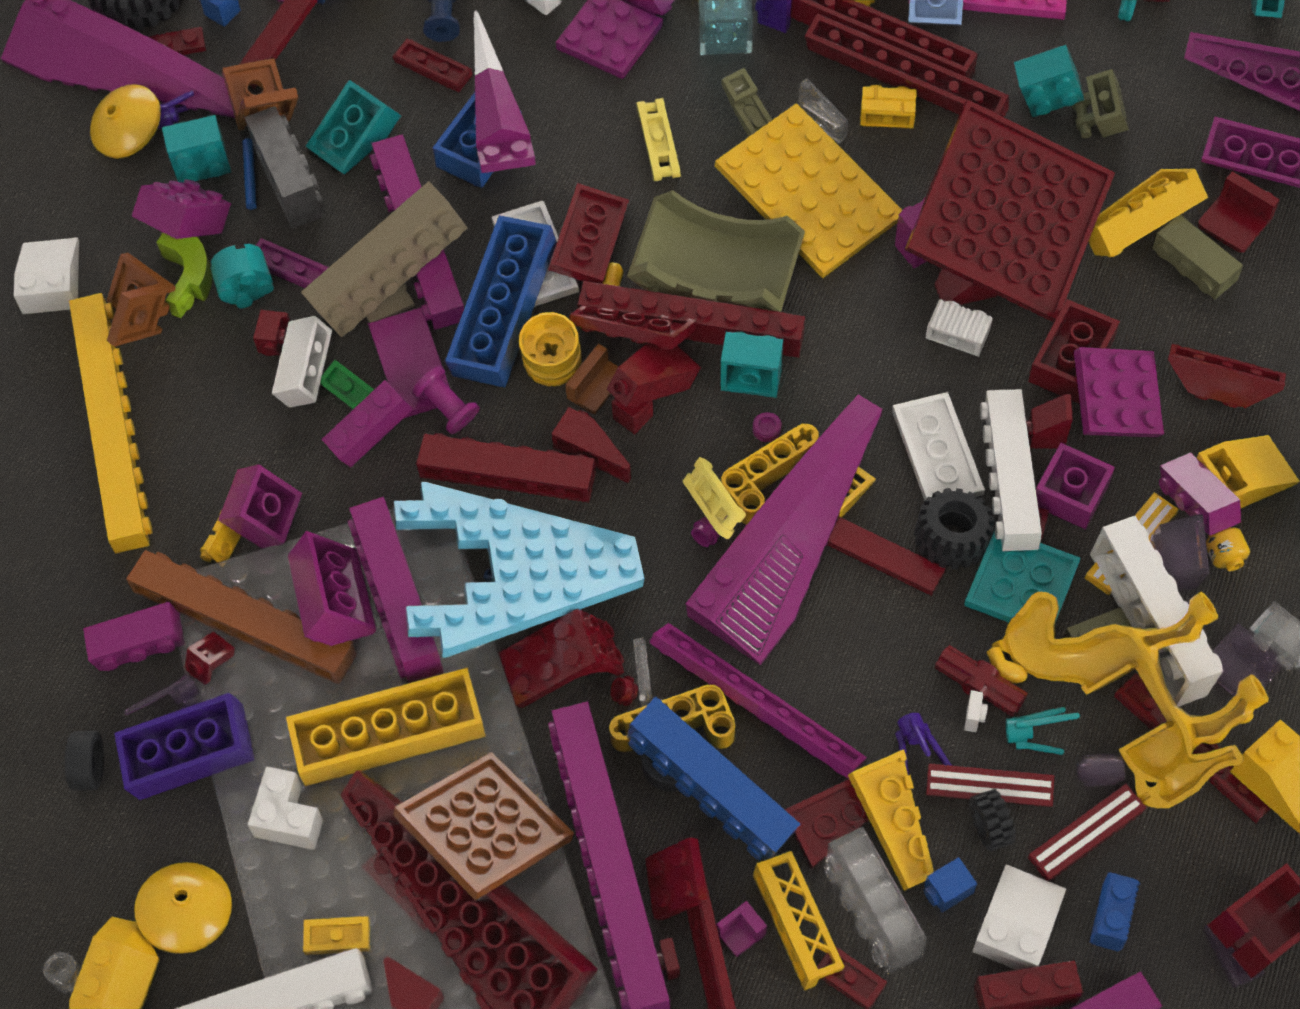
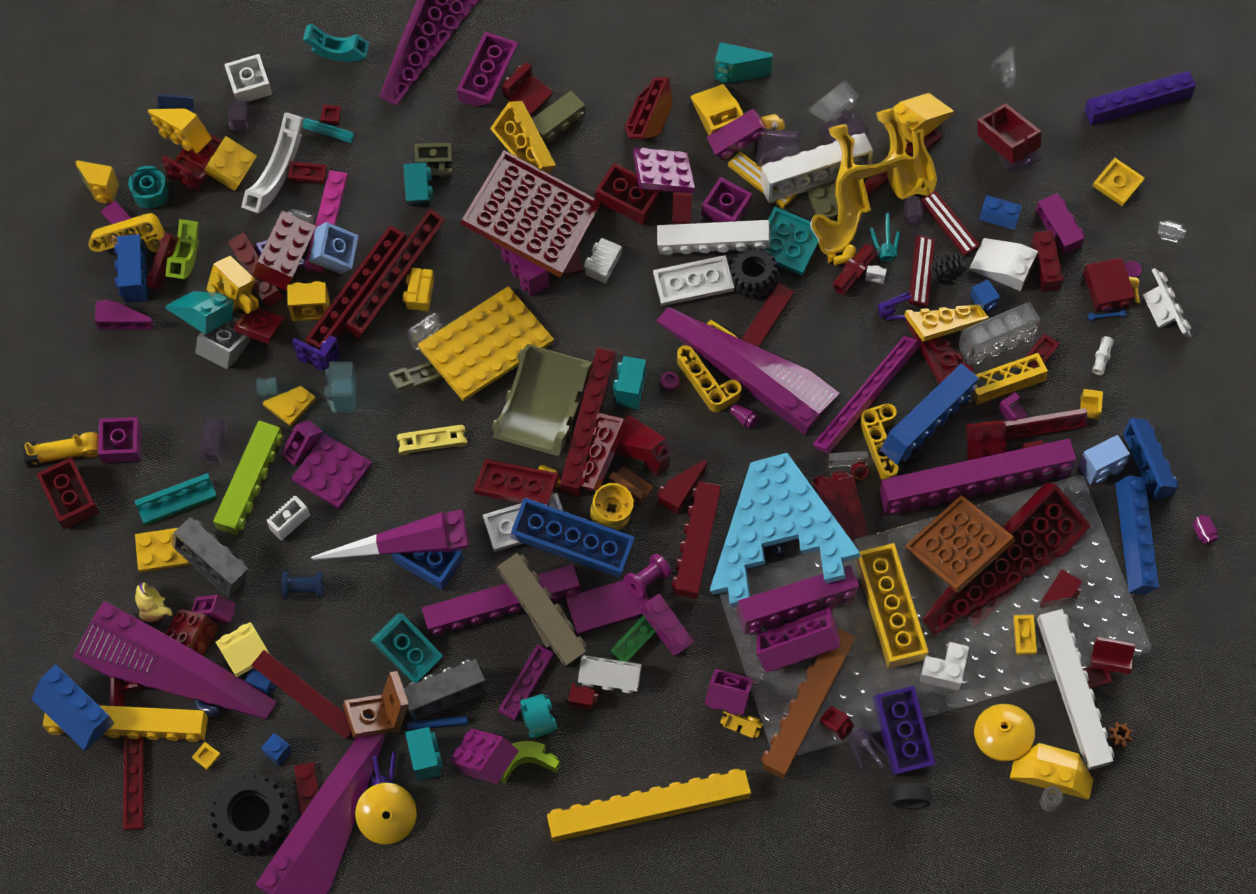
camera: 90 degrees left, 5 degrees up
(47, 275) = (517, 861): white slope -> none
(134, 637) = (821, 772): magenta brick -> none
(138, 308) = (559, 779): dark orange bracket -> none
(433, 65) = (348, 595): dark red tile -> none
(713, 498) = (732, 408): light yellow plate -> none

